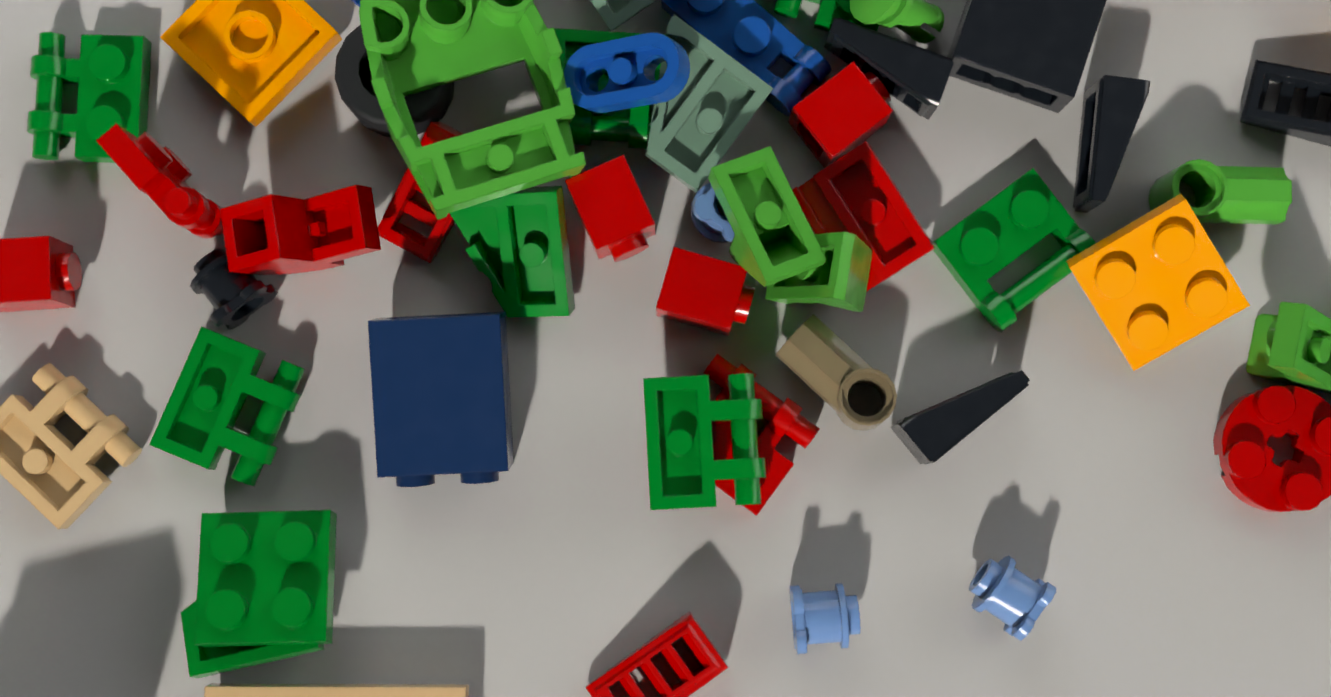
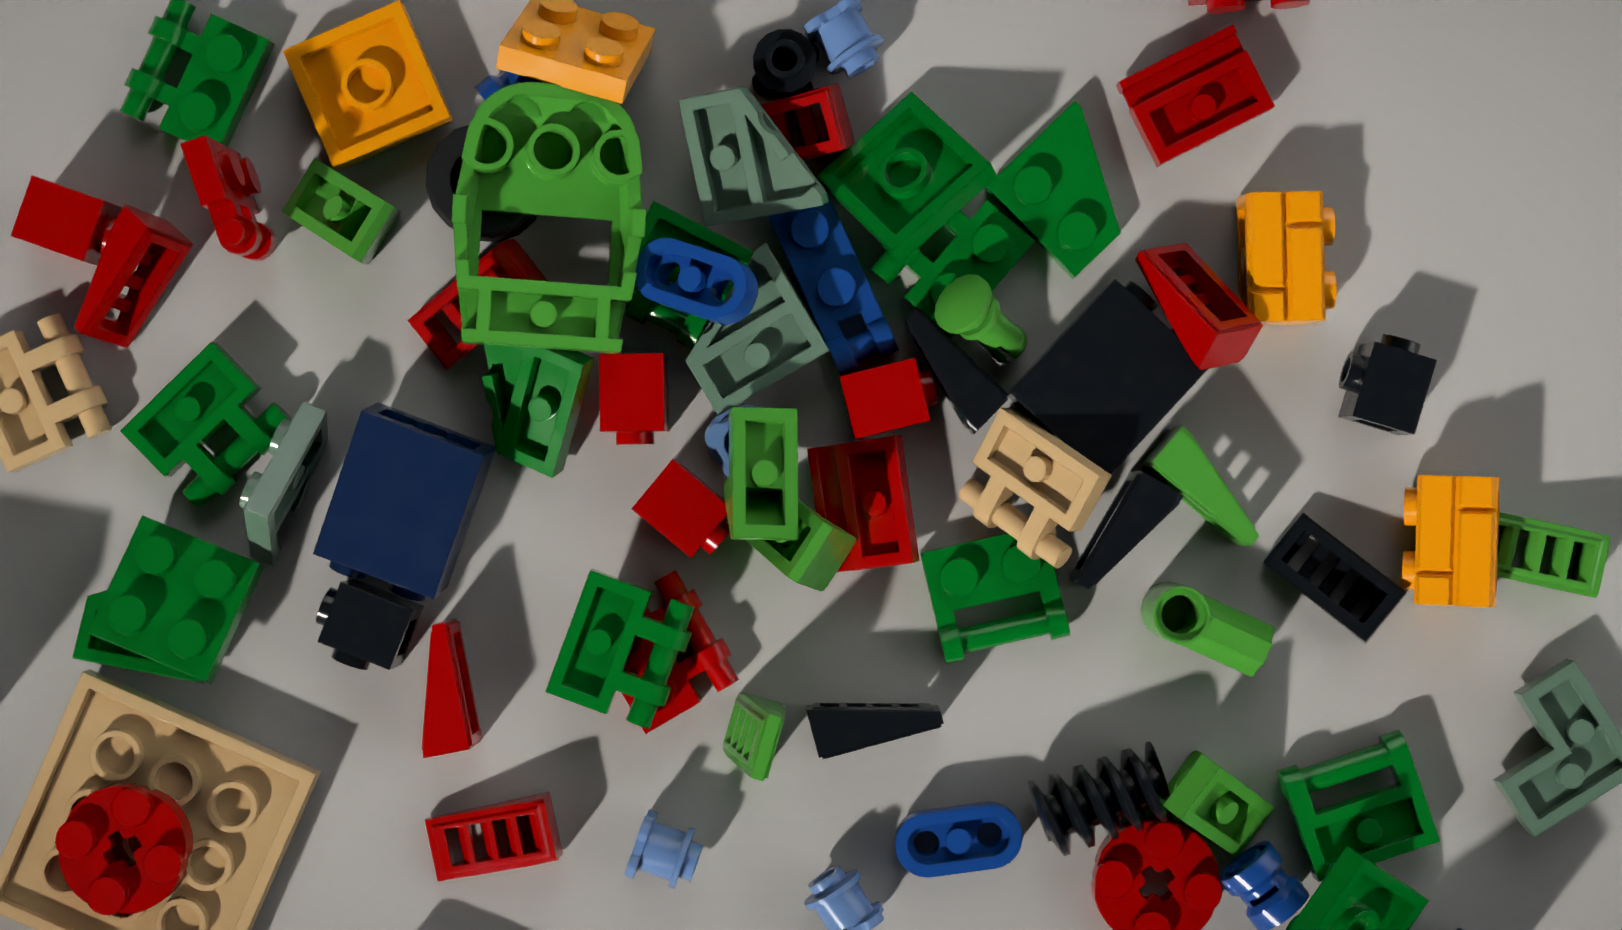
camera: 25 degrees right, 5 degrees up
(89, 265) = (133, 241): none -> red slope
(230, 293) = (252, 314): black brick -> none
(275, 156) = (341, 212): none -> bright green slope
(299, 234) = (336, 294): red brick -> none
(321, 424) = (284, 482): none -> sand green wing
(454, 526) = (367, 625): none -> black brick
(564, 568) = (450, 704): none -> red slope
(833, 369) = (772, 632): dark tan piece -> none
(860, 468) = (754, 734): none -> bright green slope
(1012, 112) = (1042, 472): none -> tan plate
(1084, 488) = (958, 844): none -> blue plate
(1157, 282) = (1105, 683): light orange plate -> none
(1172, 77) = (1186, 469): none -> bright green slope
(1201, 388) = (1102, 799): none -> black piece

